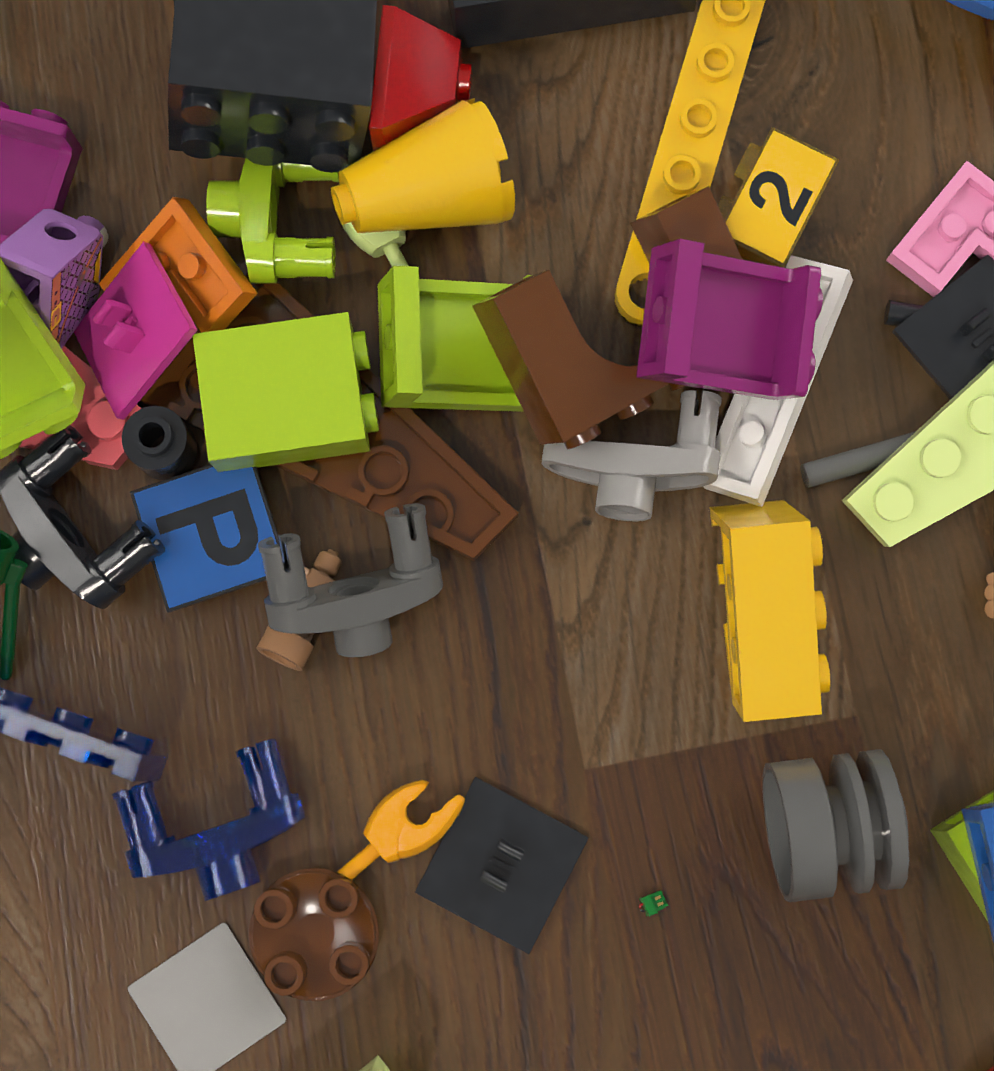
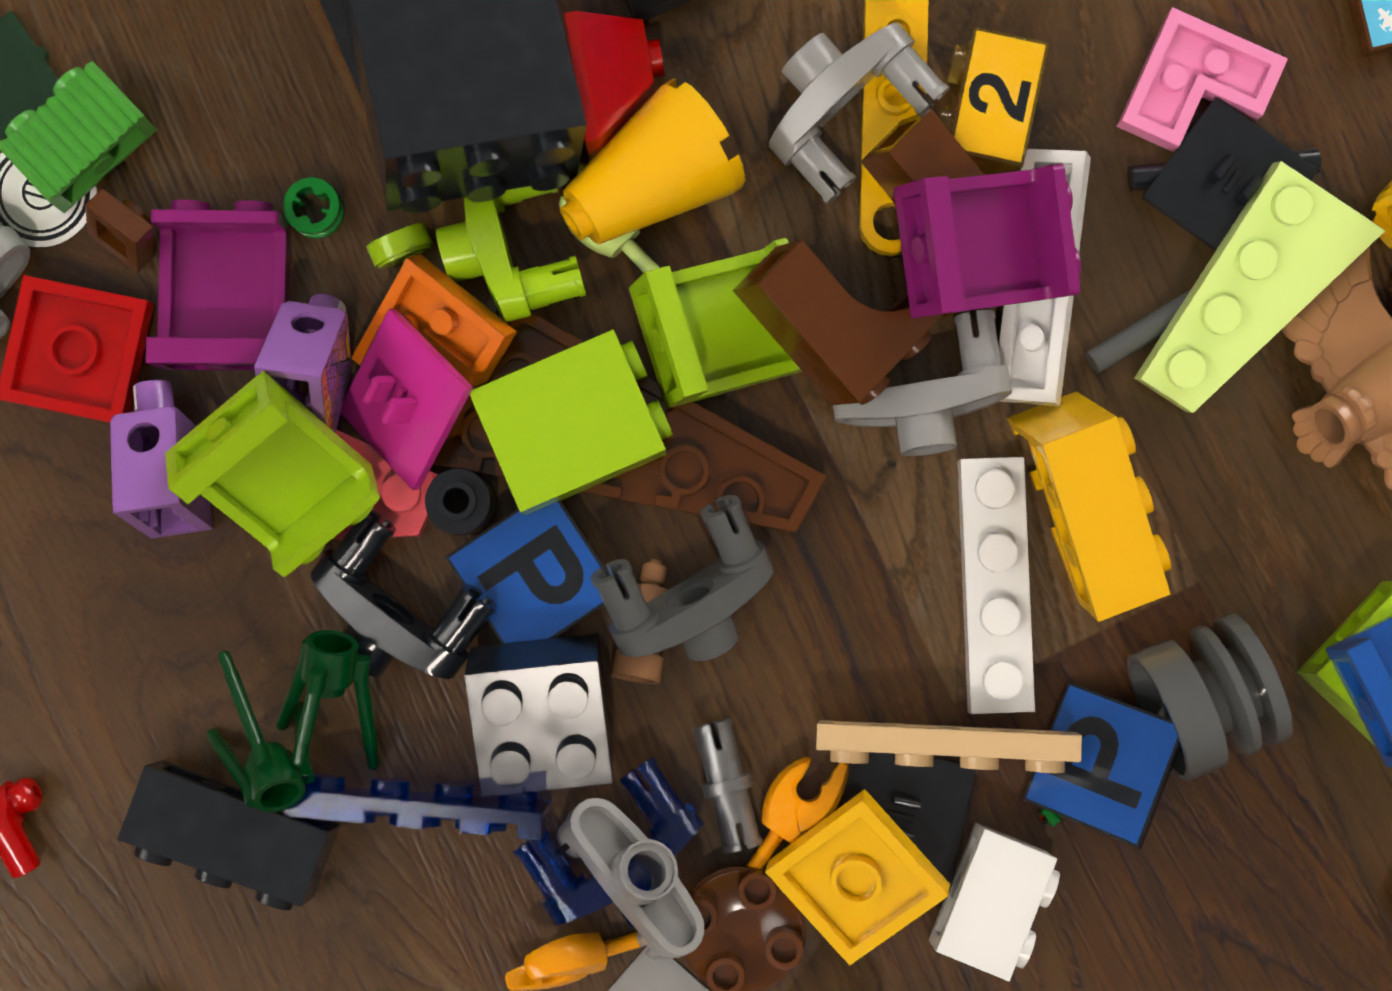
camera: 15 degrees left, 5 degrees up
(89, 126) = (324, 191): none -> green bush
(135, 916) = (567, 960): none -> light orange hand
(162, 187) = (399, 245): none -> lime tile
(174, 666) = (539, 715): none -> brick
(233, 889) = (606, 843): none -> light grey connector
(340, 787) = (727, 785): none -> flat silver pin
(440, 911) = (857, 877): none -> yellow plate
(570, 975) = (995, 902): none -> white brick
(591, 813) = (977, 746): none -> tan plate
(622, 145) = (829, 82): none -> light grey connector
(655, 664) = (996, 585): none -> white plate
(714, 867) = (1121, 767): none -> blue piece

